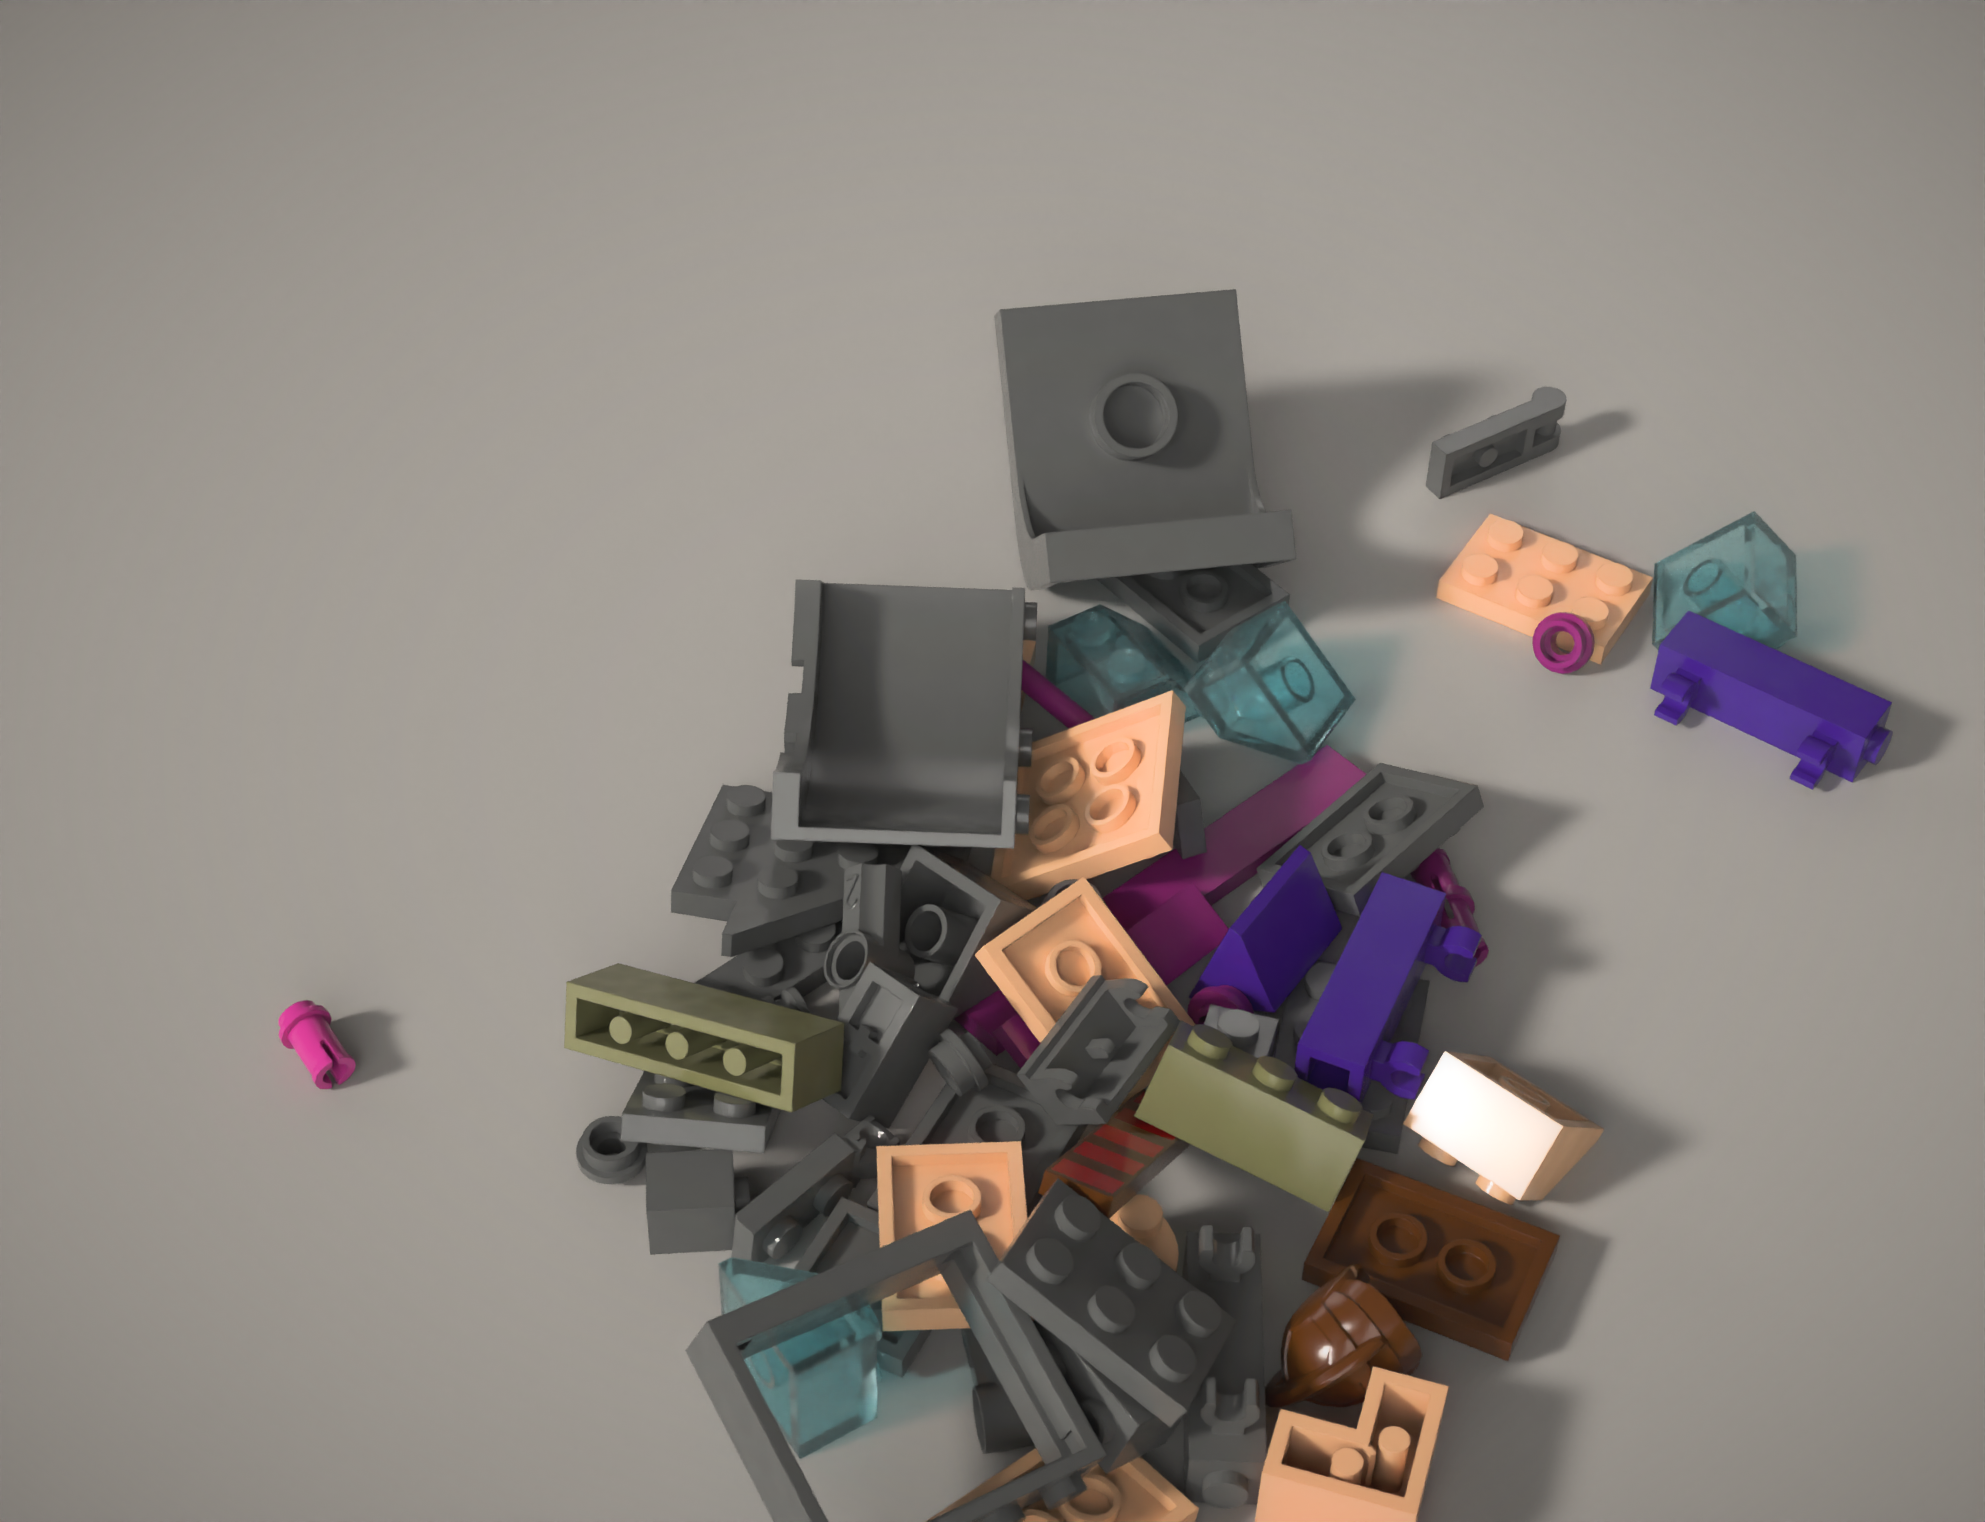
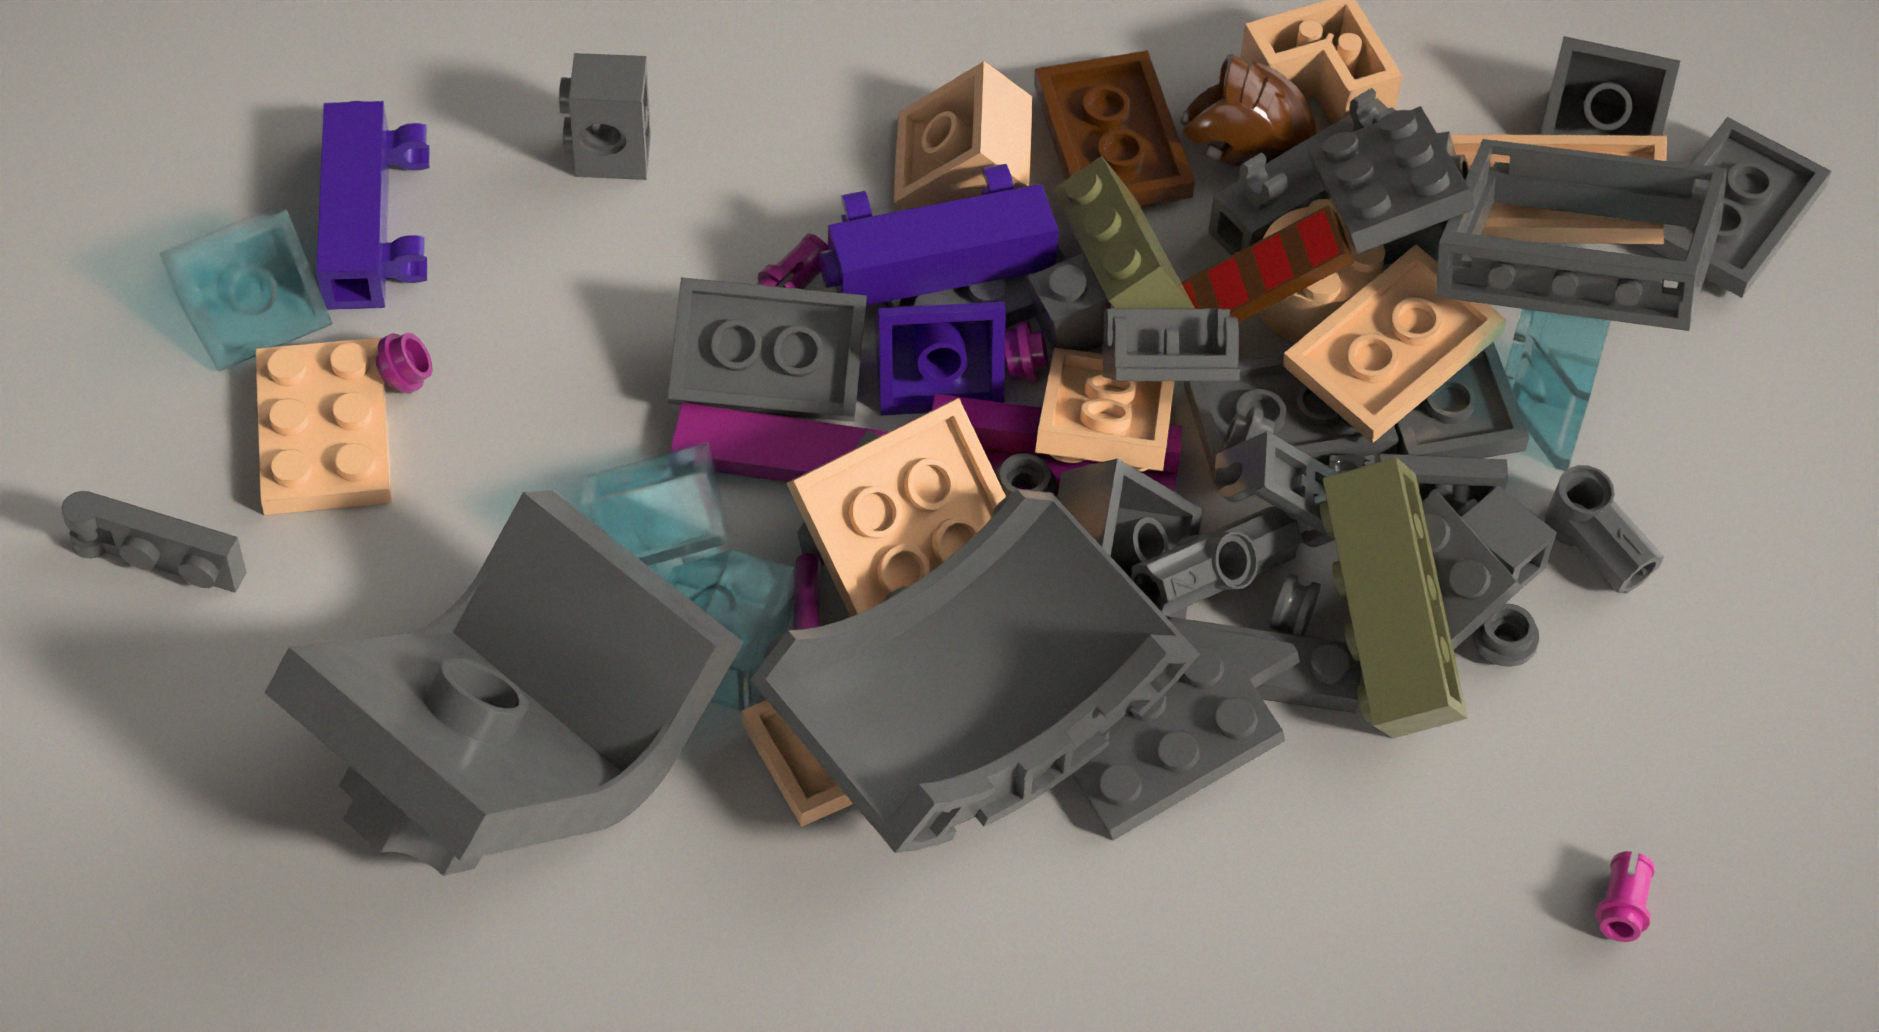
camera: 130 degrees left, 10 degrees up
(650, 1286) = (1602, 529): none -> dark grey piece
(1727, 866) = (607, 116): none -> dark grey brick

